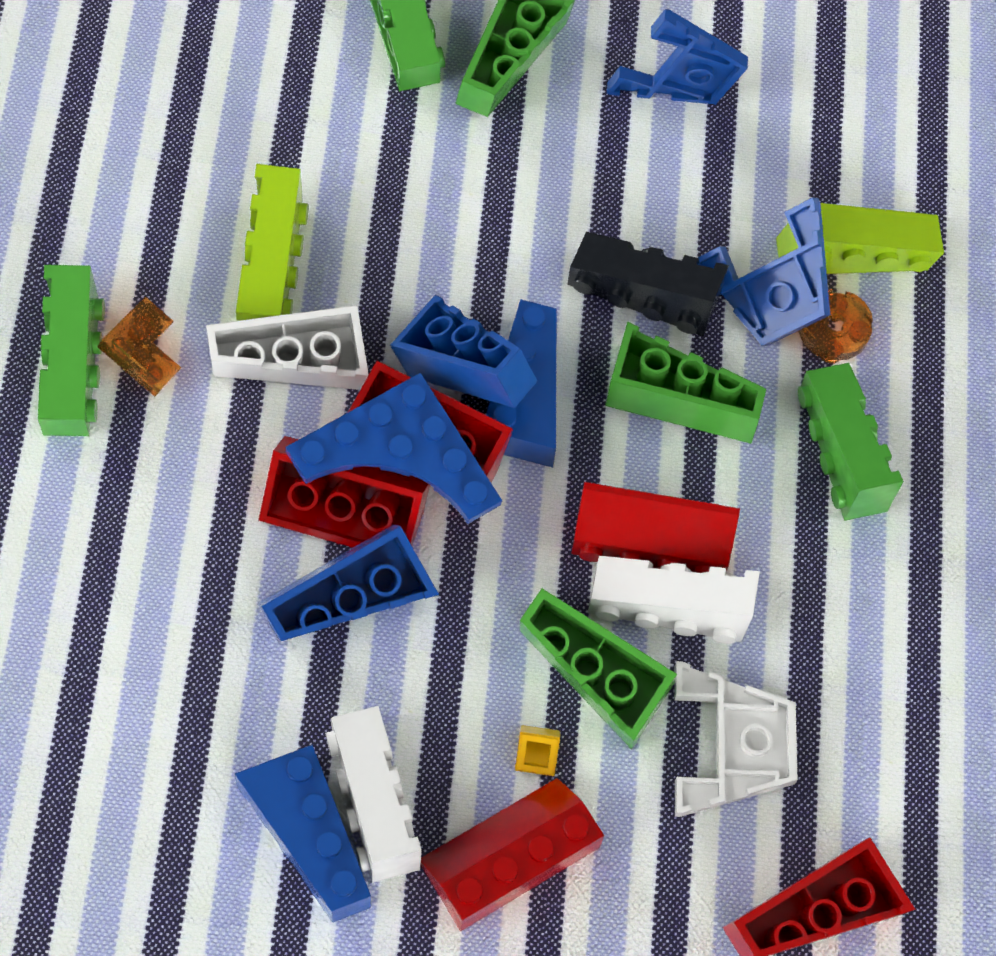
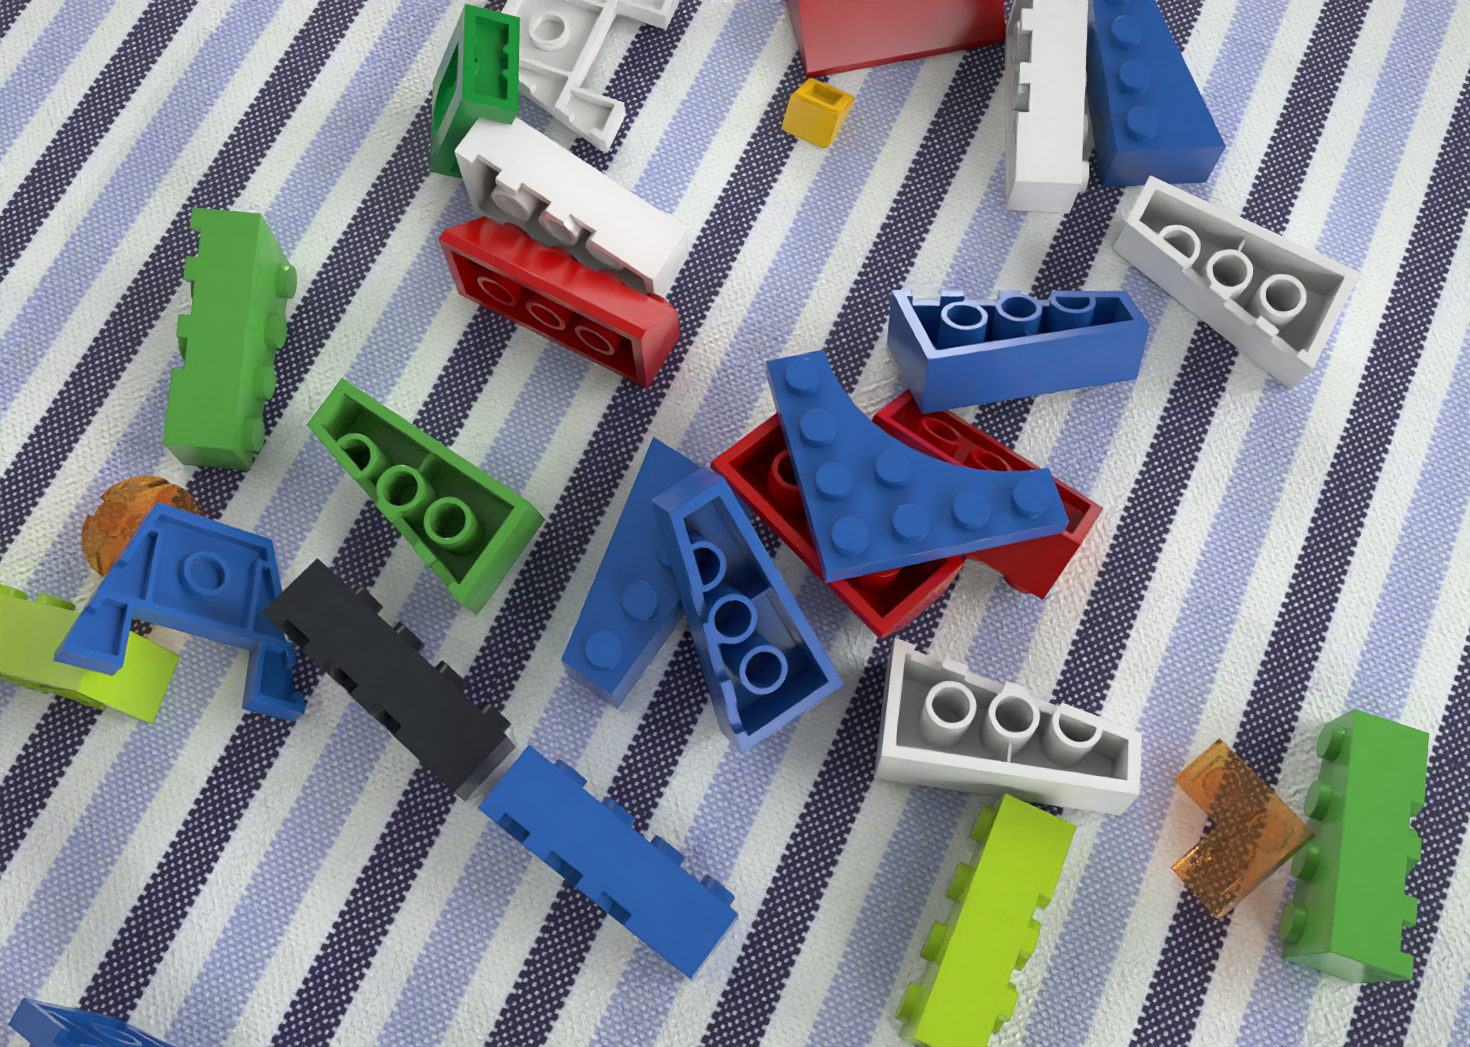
camera: 155 degrees left, 5 degrees up
(205, 689) = (1238, 277): none -> white wedge
(488, 228) = (611, 861): none -> blue wedge
(603, 668) = (708, 157): bright green wedge -> none
(769, 634) = (486, 66): none -> green panel

